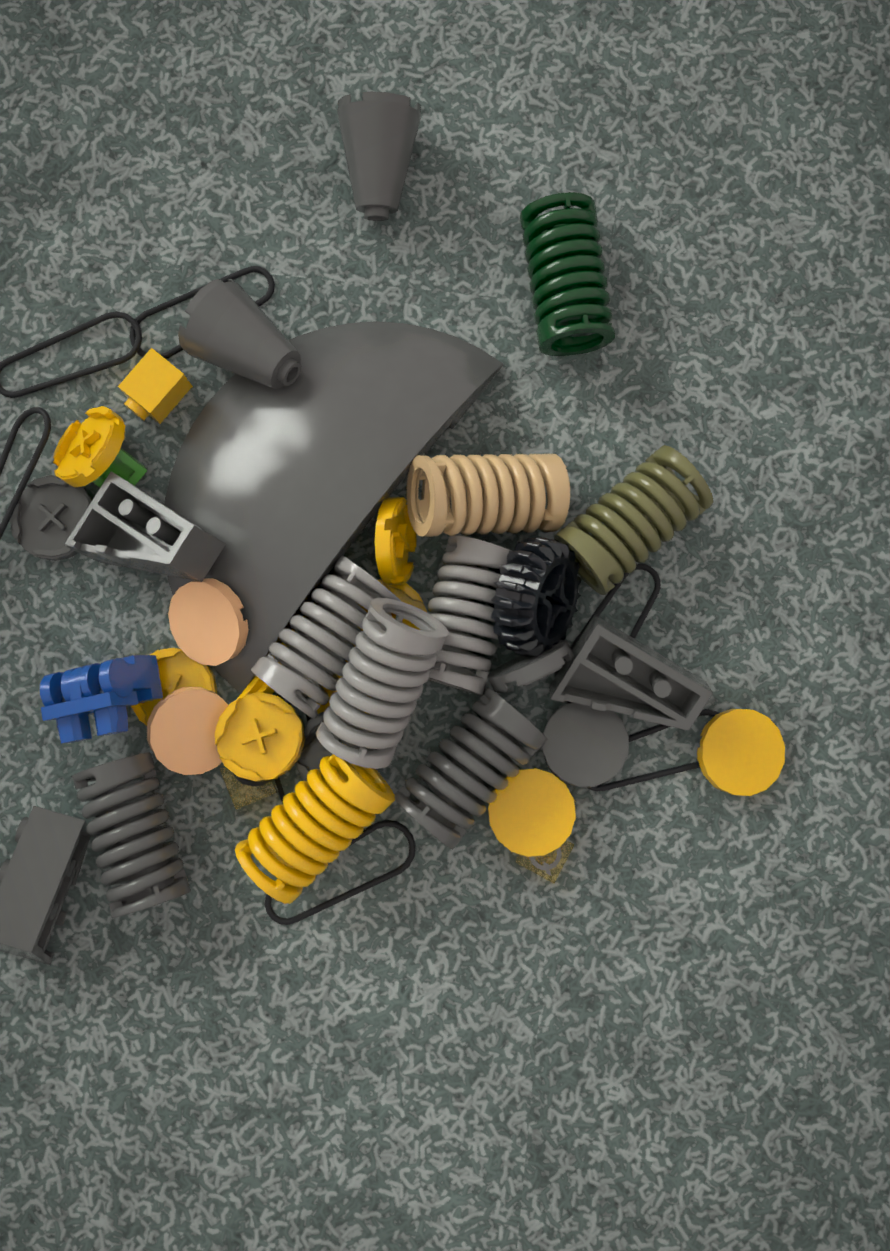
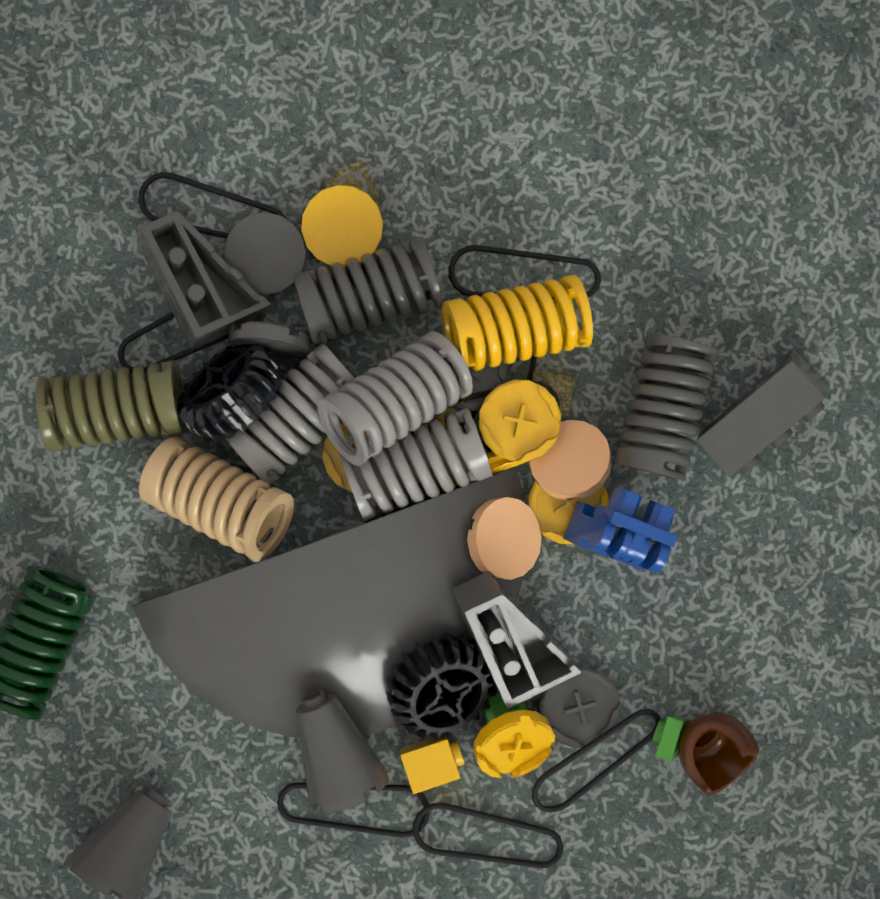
camera: 150 degrees left, 5 degrees up
(184, 454) = (417, 693): none -> black gear
(394, 541) = (313, 512): yellow tile -> none
(741, 752) = (145, 168): yellow tile -> none

